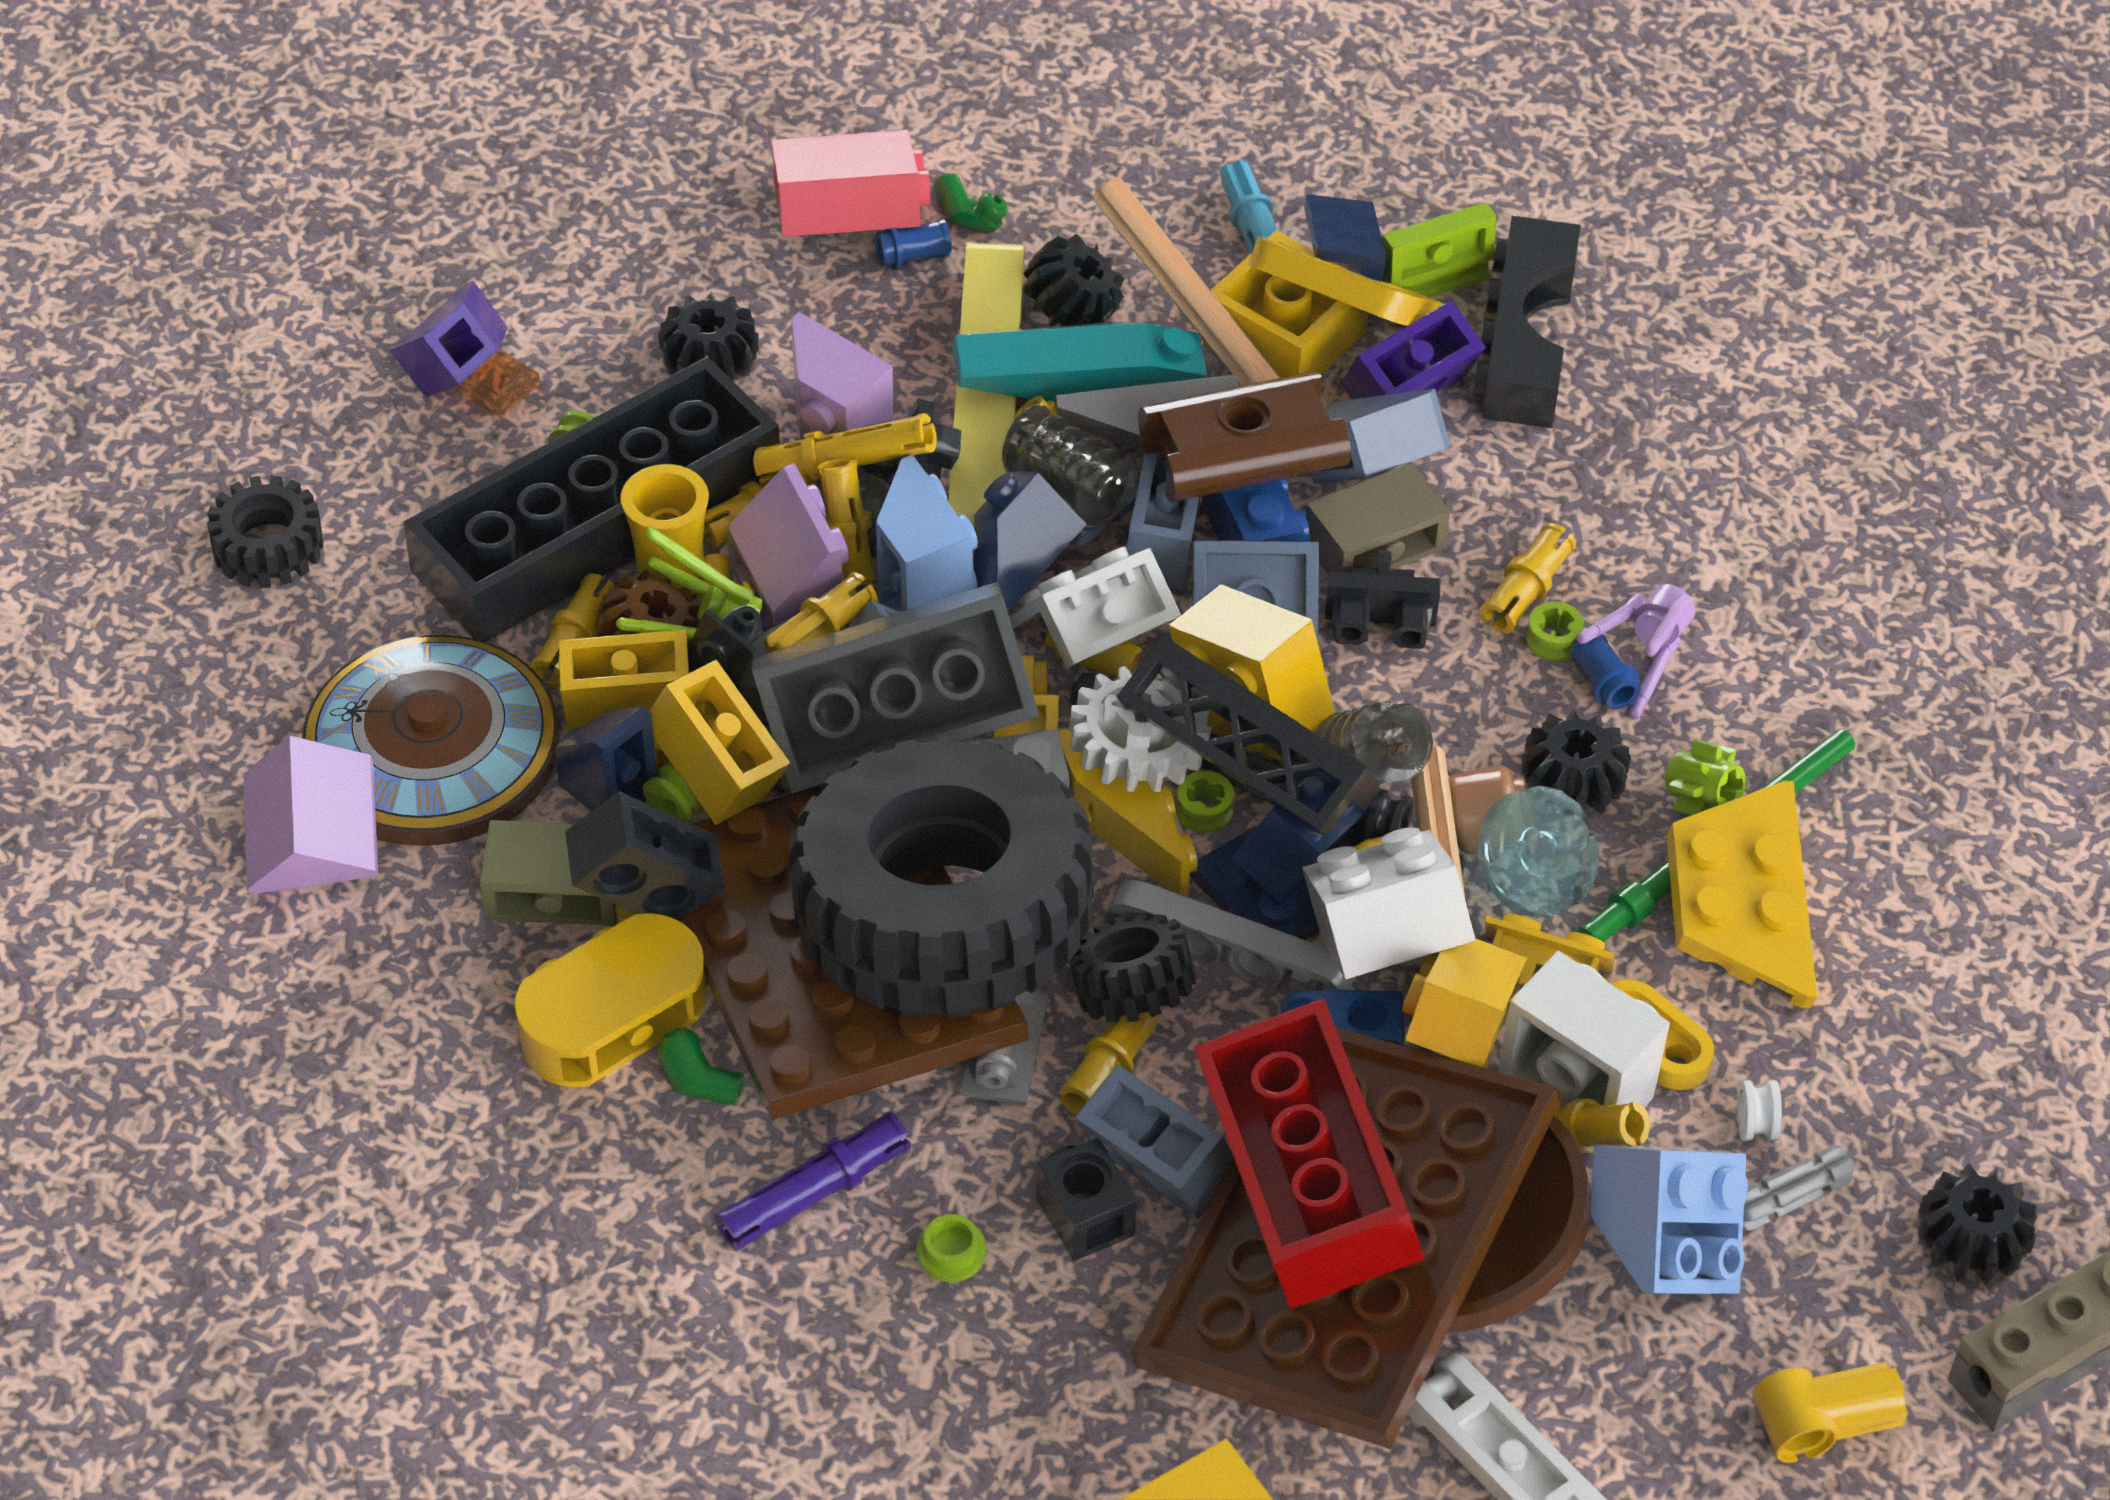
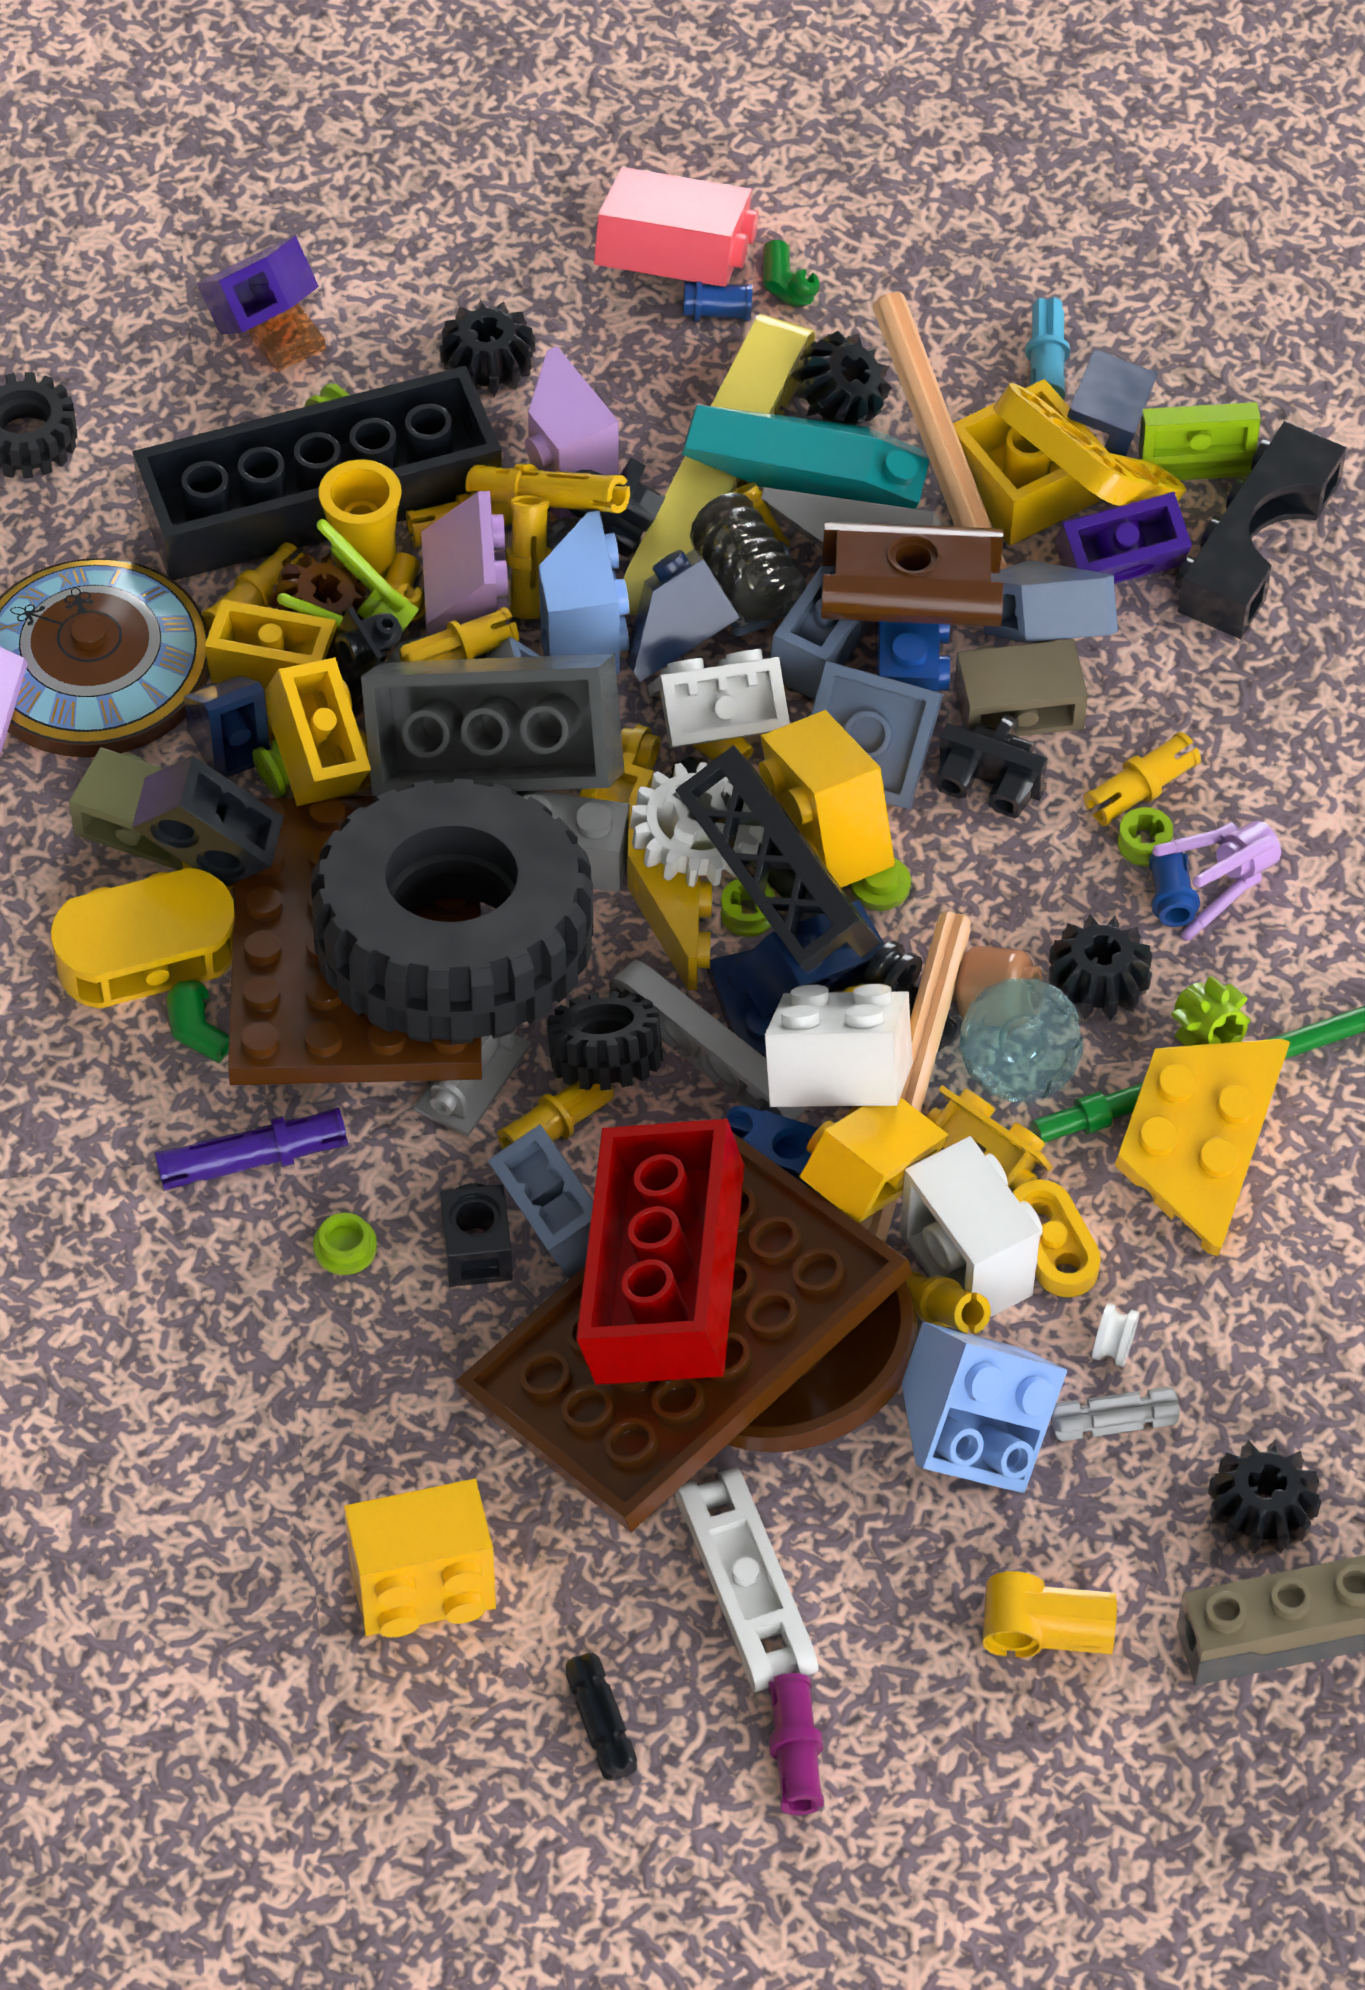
camera: 20 degrees right, 5 degrees up
(1384, 737) = (925, 891): clear smoke piece -> none

